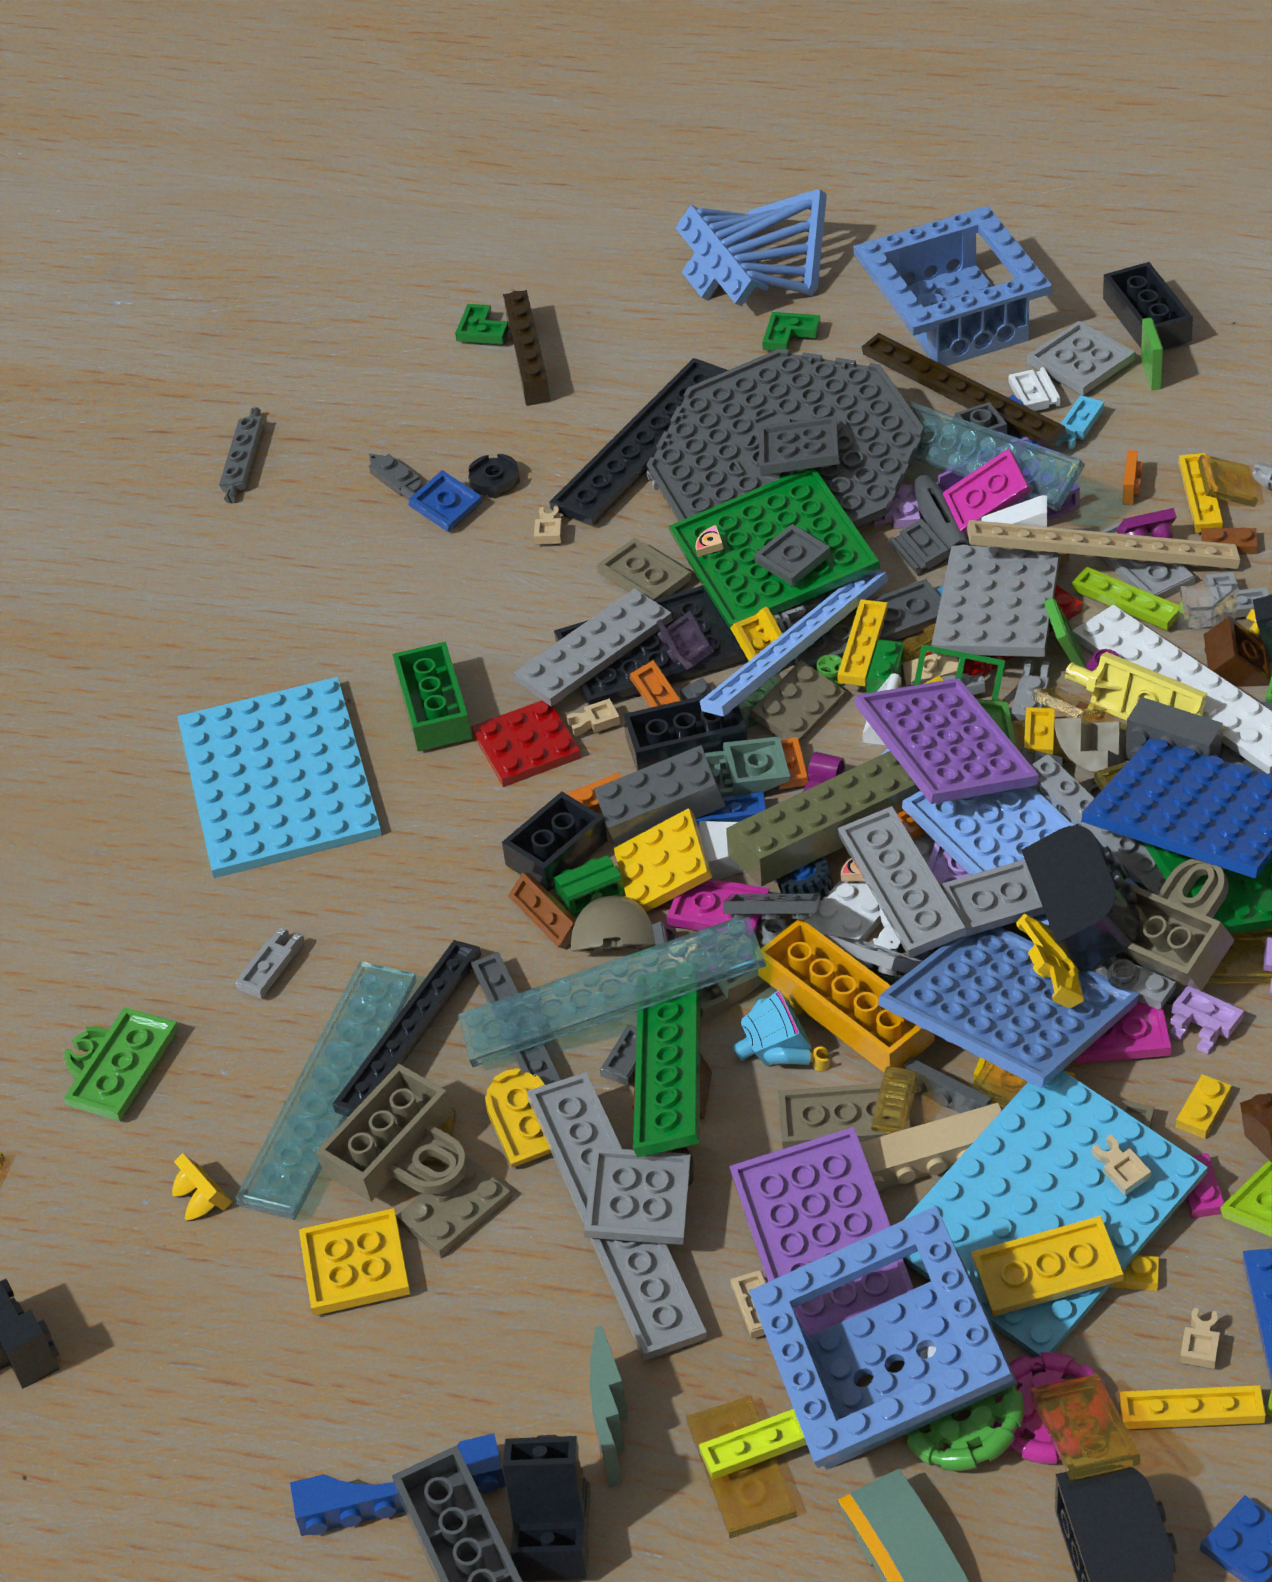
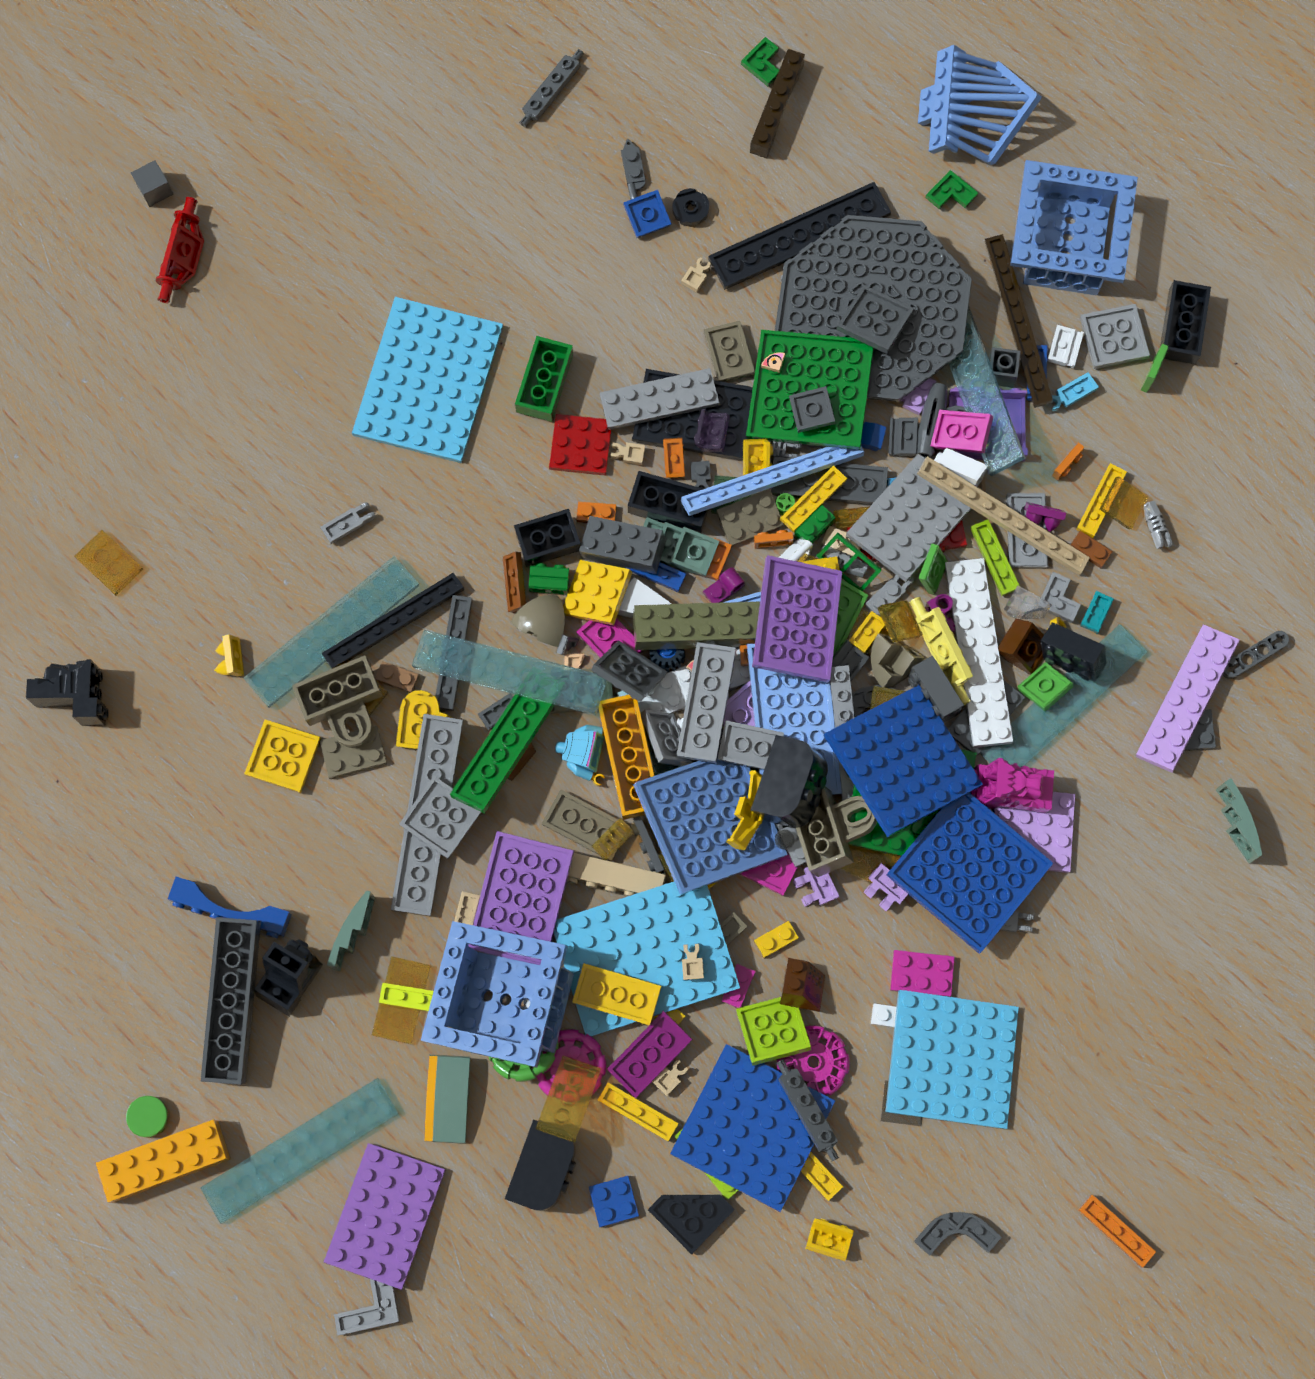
camera: 25 degrees right, 30 degrees up
(116, 1062) = (231, 542): bright green plate -> none
(465, 1089) = (397, 677): none -> medium nougat plate
(841, 711) = (779, 538): none -> orange plate
(888, 561) = (872, 436): none -> blue piece
(1149, 1323) = (649, 1054): none -> magenta plate

